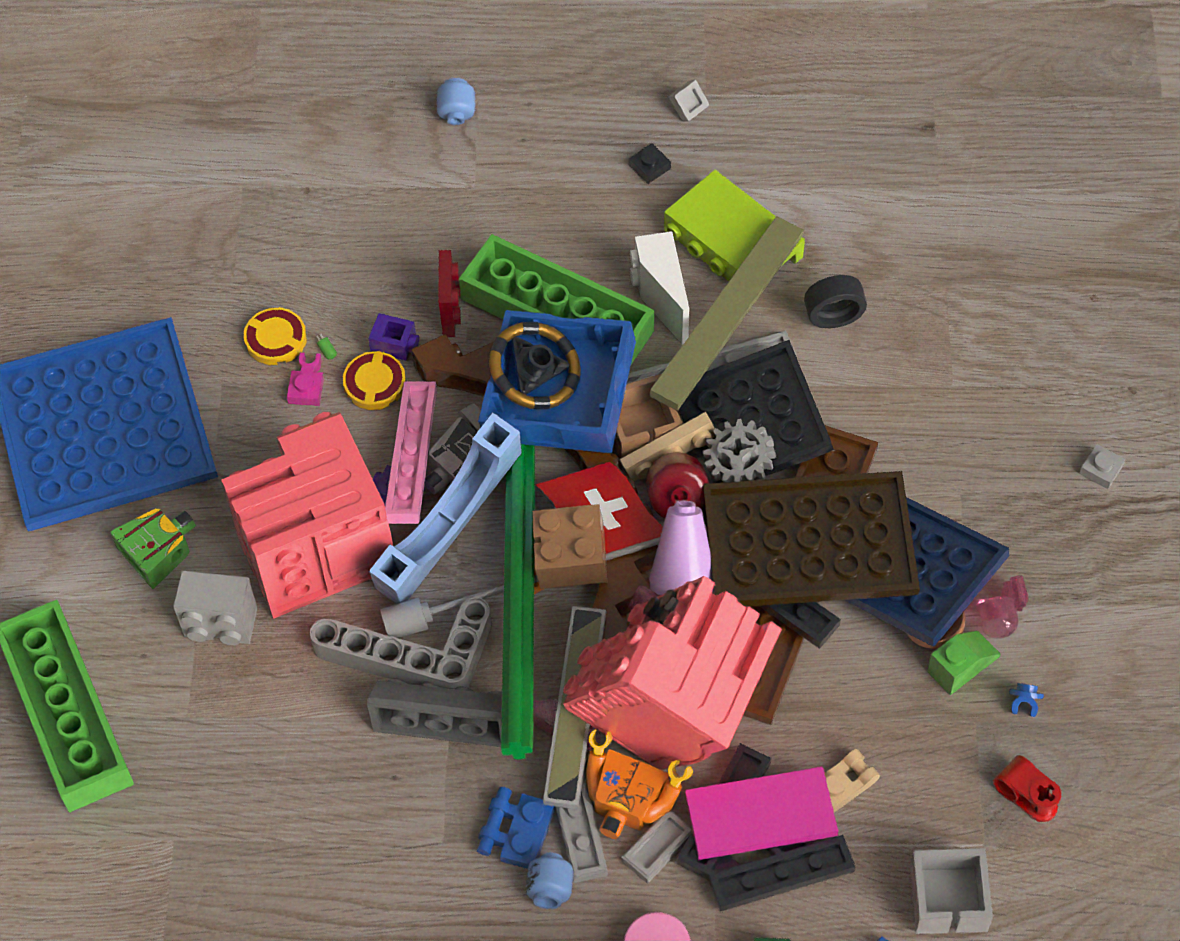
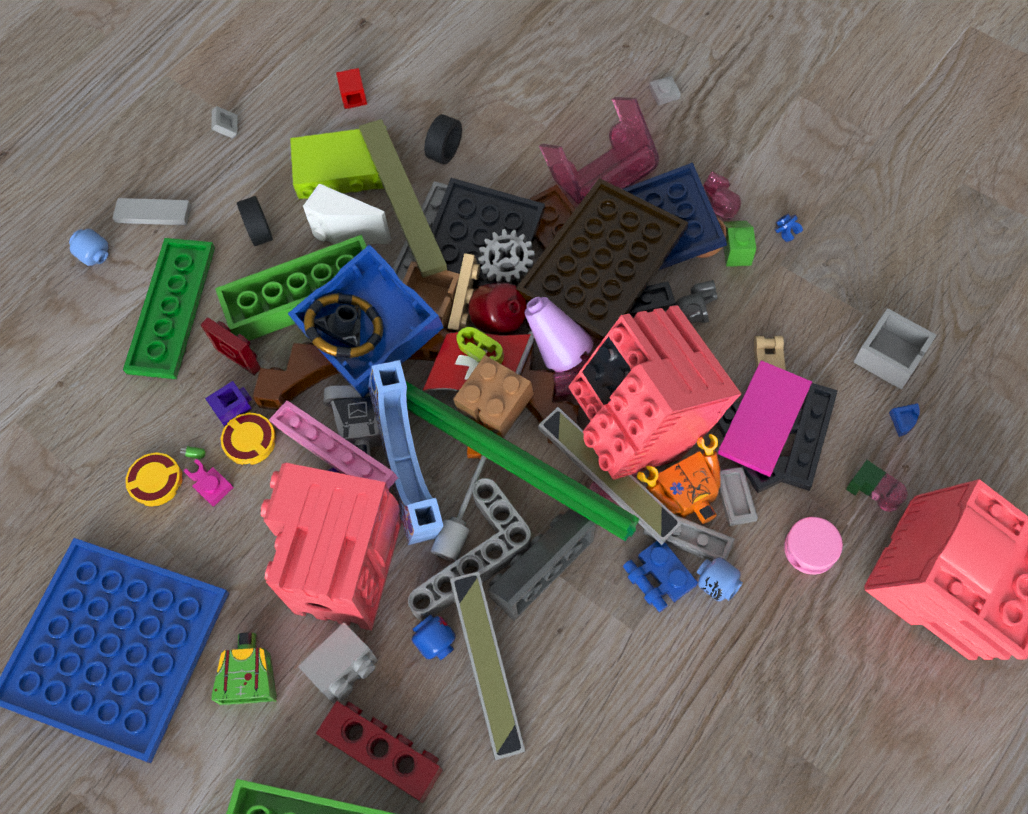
camera: 50 degrees left, 5 degrees up
(159, 652) = (336, 731): none -> dark red brick
(301, 670) = (433, 637): none -> blue head
(307, 731) = (487, 666): none -> olive tile
(451, 214) = (169, 309): none -> green plate
(540, 120) = (151, 211): none -> light grey tile
(596, 211) = (254, 221): none -> black tyre
(622, 499) = (482, 341): none -> lime beam
(649, 163) = (245, 173): black plate -> none
(829, 177) = (351, 88): none -> red brick
(842, 669) = (695, 304): none -> dark grey piece
(947, 484) = (623, 165): none -> clear pink windscreen
(1029, 789) = (849, 265): red piece -> none

